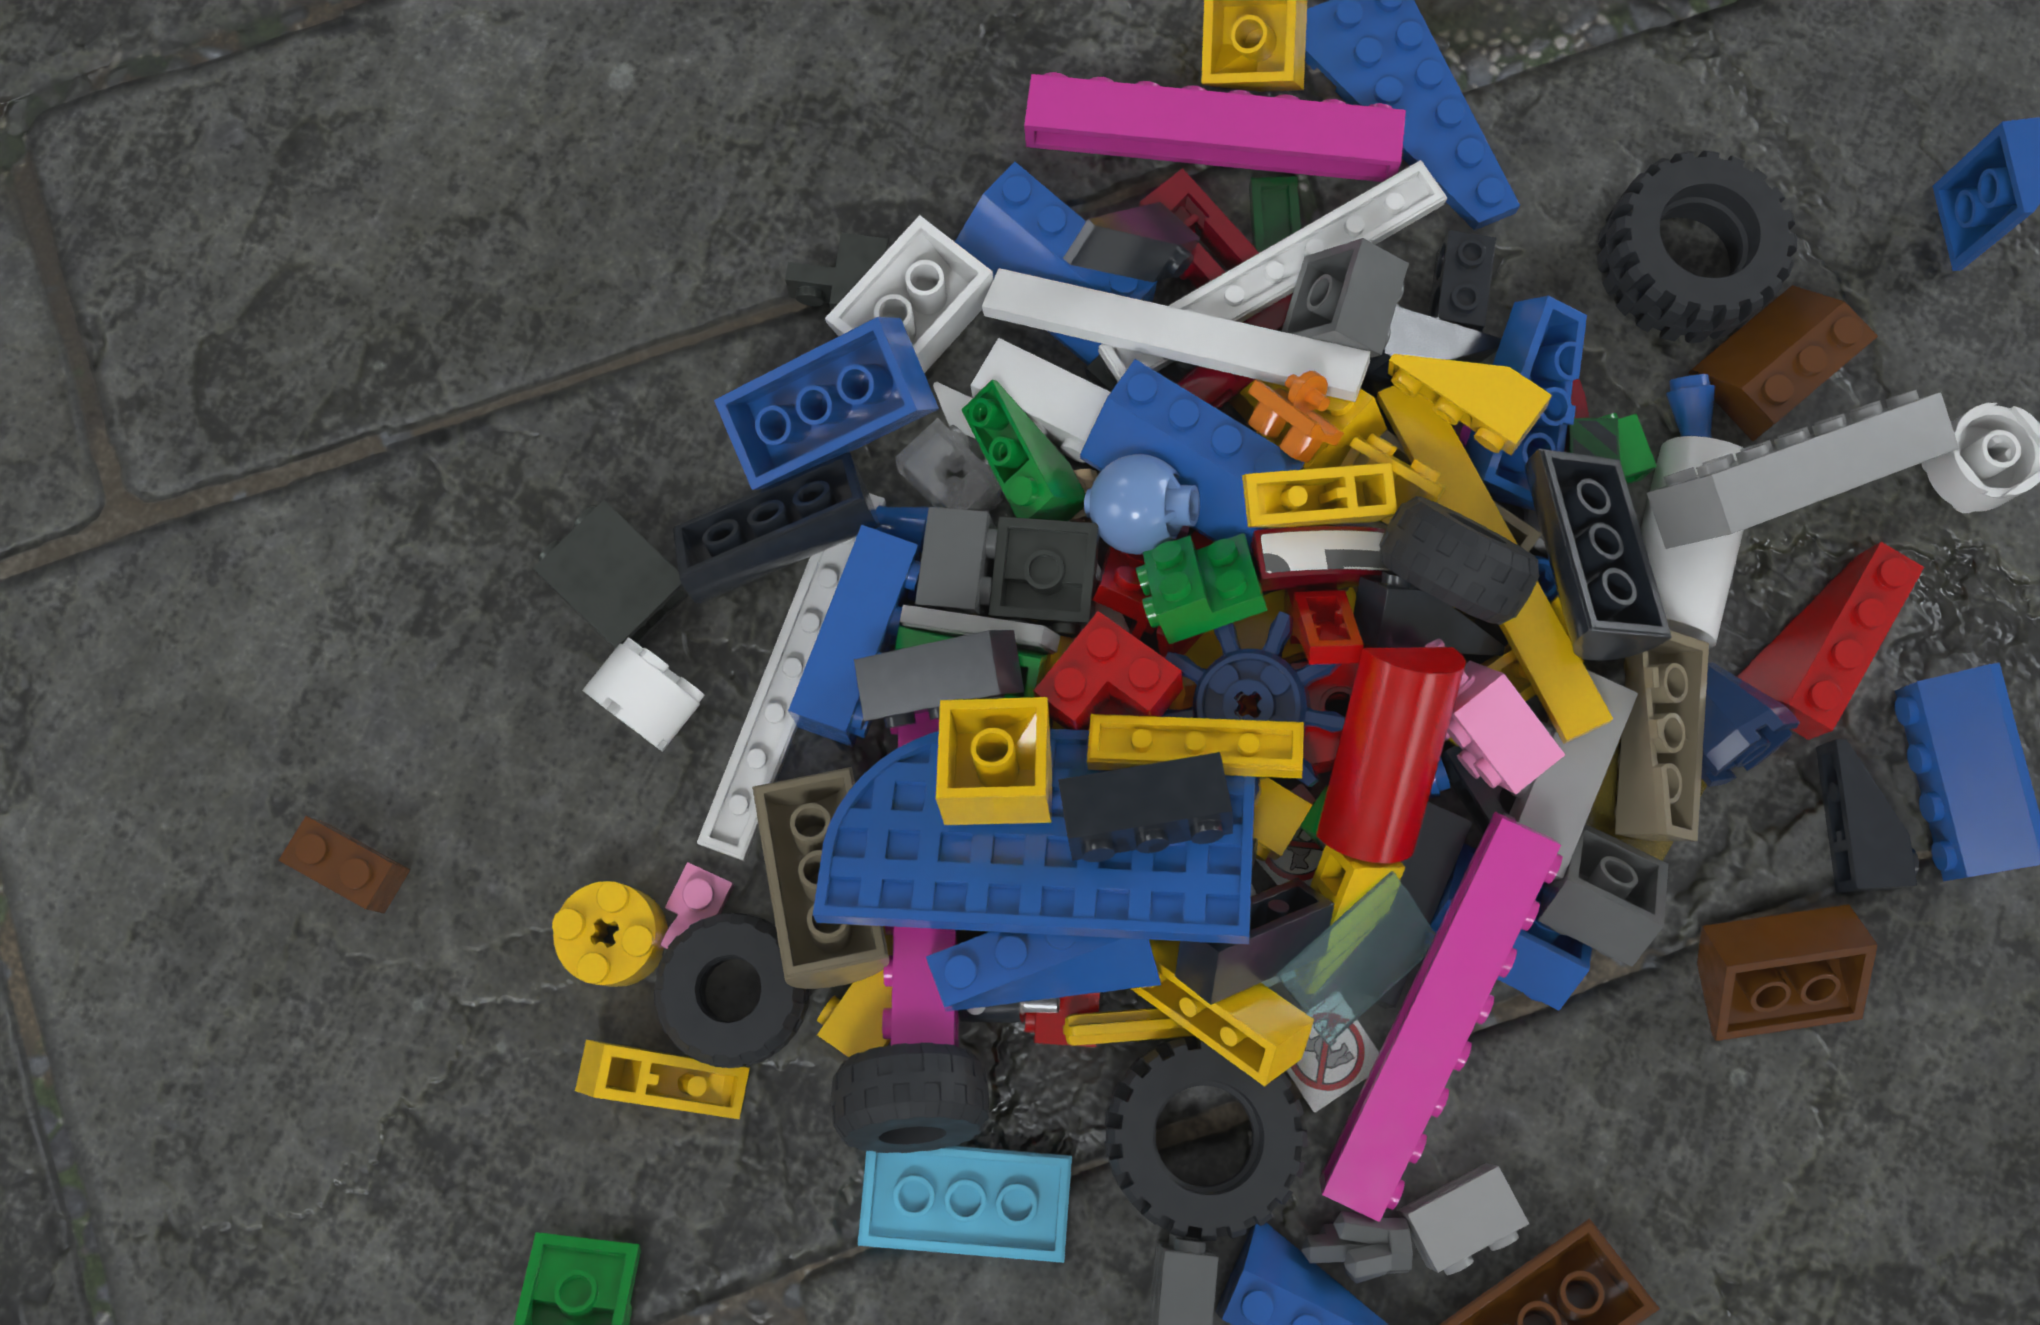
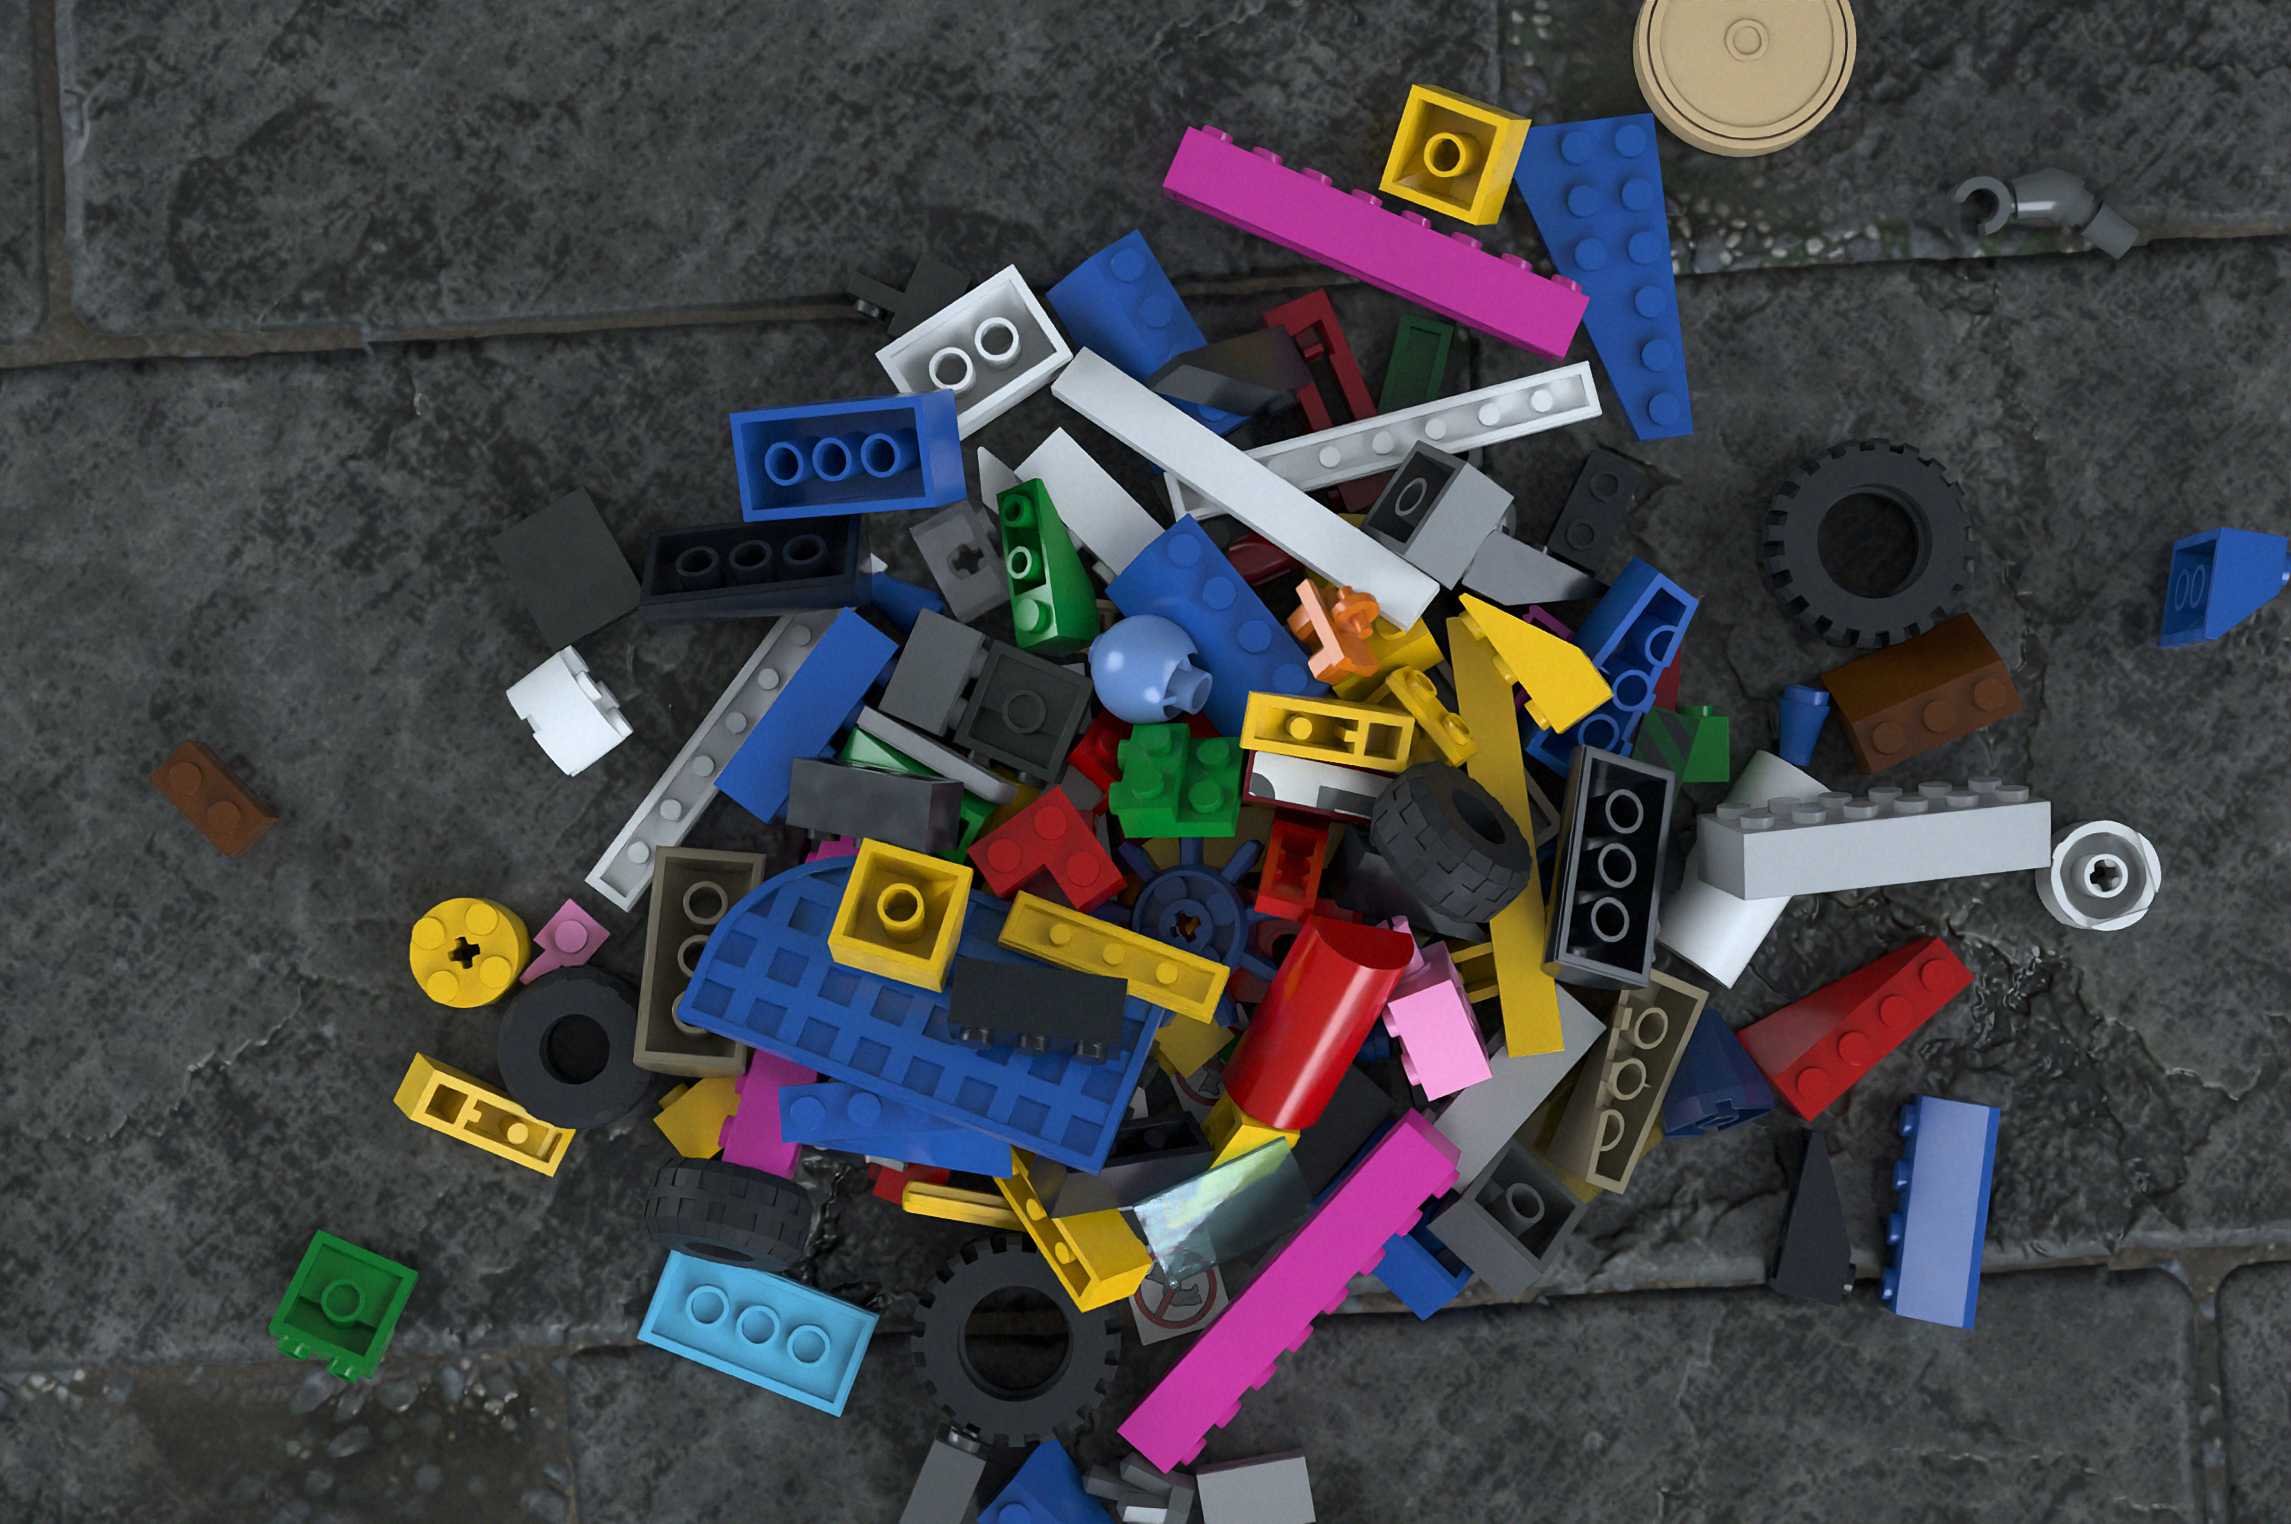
camera: 15 degrees right, 10 degrees up
(1785, 971) = (1674, 1350): reddish brown slope -> none

